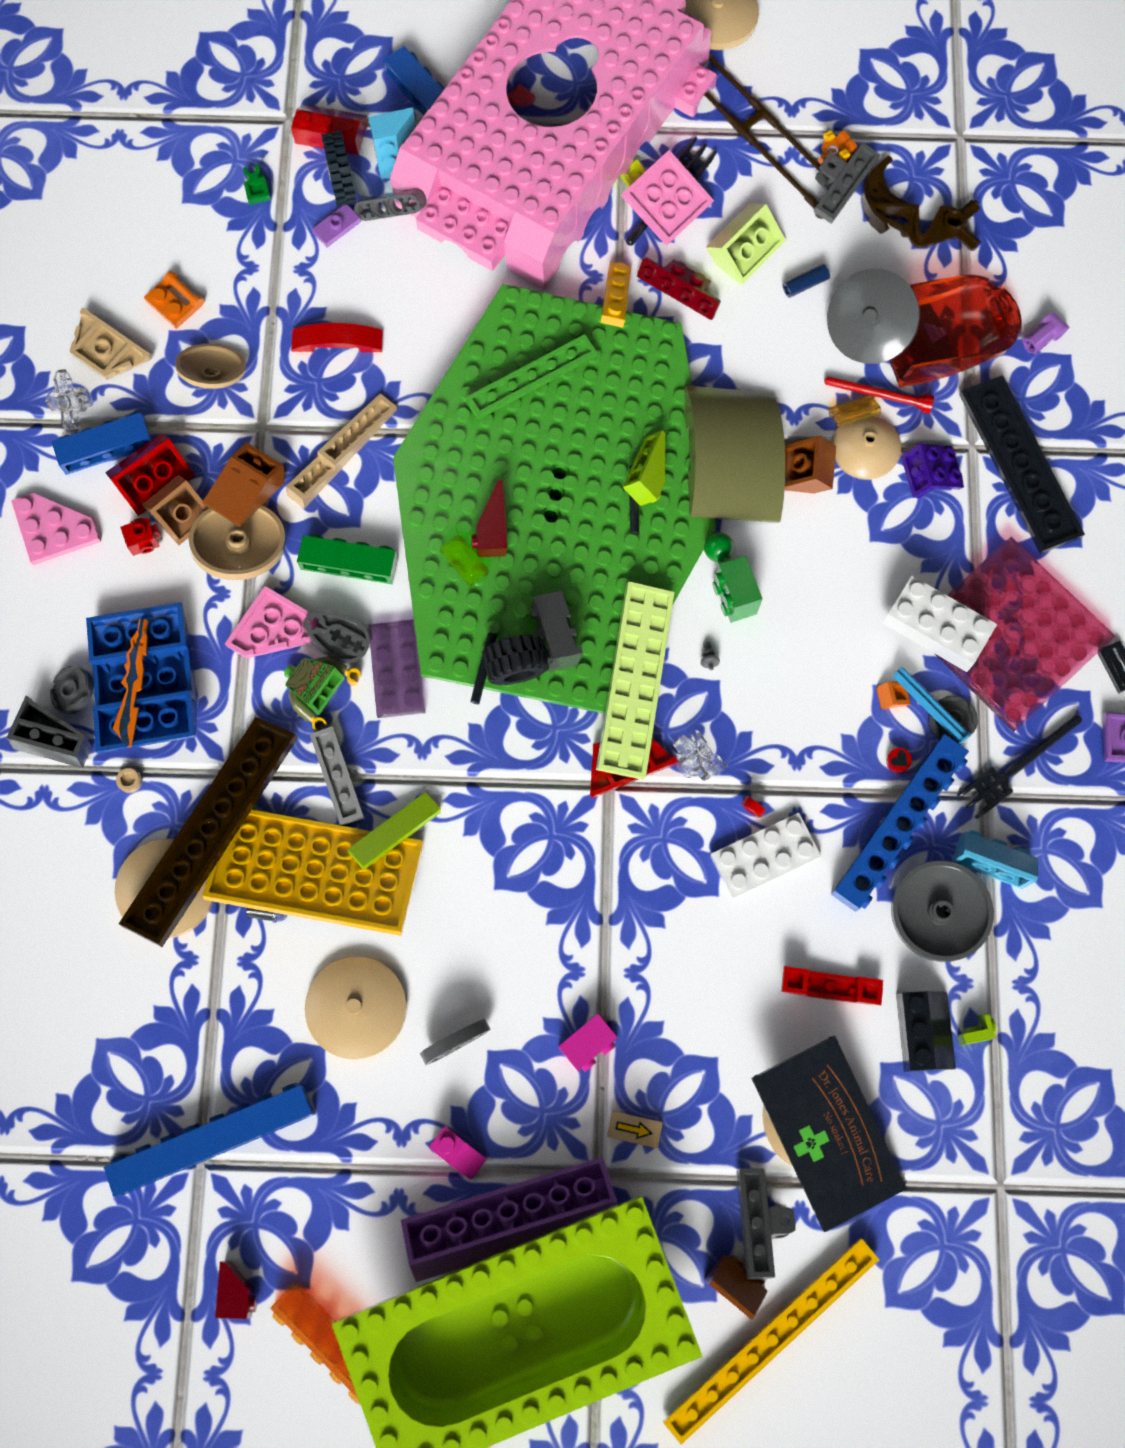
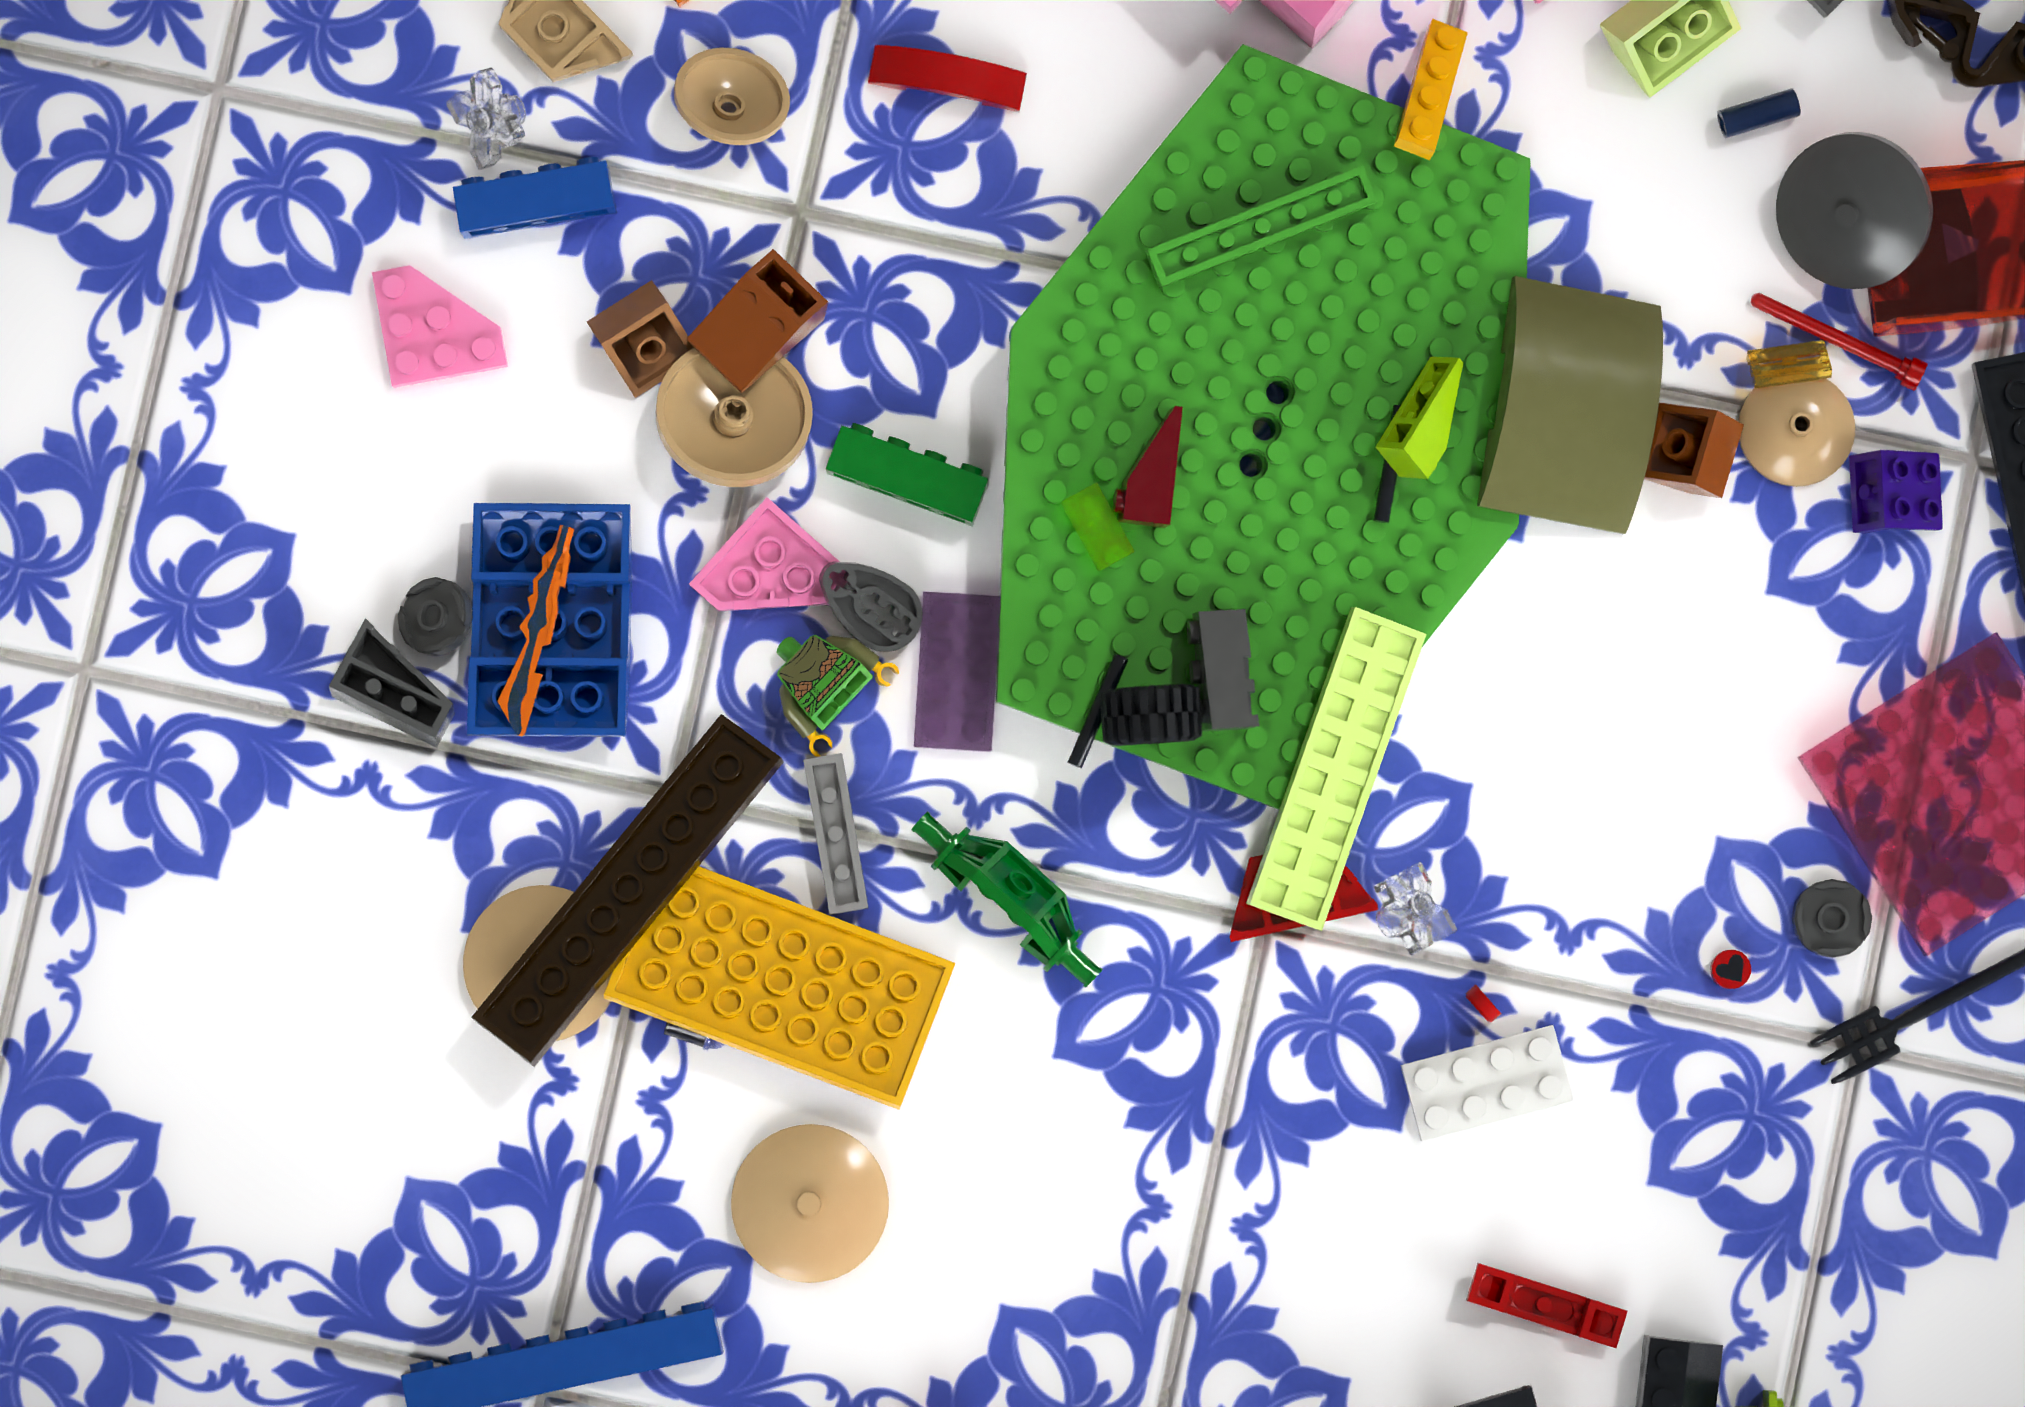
camera: 10 degrees right, 10 degrees up
(129, 780) = (506, 779): tan tile -> none
(141, 536) = (566, 369): red brick -> none
(148, 471) = (603, 264): red slope -> none
(339, 451) = (924, 279): tan slope -> none
(394, 830) = (913, 940): lime tile -> none
(453, 786) = (1017, 888): none -> green plate
(454, 1042) = (954, 1285): dark grey piece -> none
(588, 1043) = (1156, 1324): dark pink brick -> none
(681, 284) = (1547, 82): dark red bracket -> none
(709, 658) = (1463, 742): dark grey hair -> none
(733, 579) = (1524, 627): green brick -> none
(892, 695) = (1745, 860): orange slope -> none
(931, 705) = (1801, 892): dark azure axle -> none
(939, 623) = (1842, 764): white brick -> none
(942, 911) = (1742, 1223): dark grey dish -> none
(954, 757) = (1601, 1159): blue brick -> none
(996, 859) = (1845, 1156): medium azure slope -> none

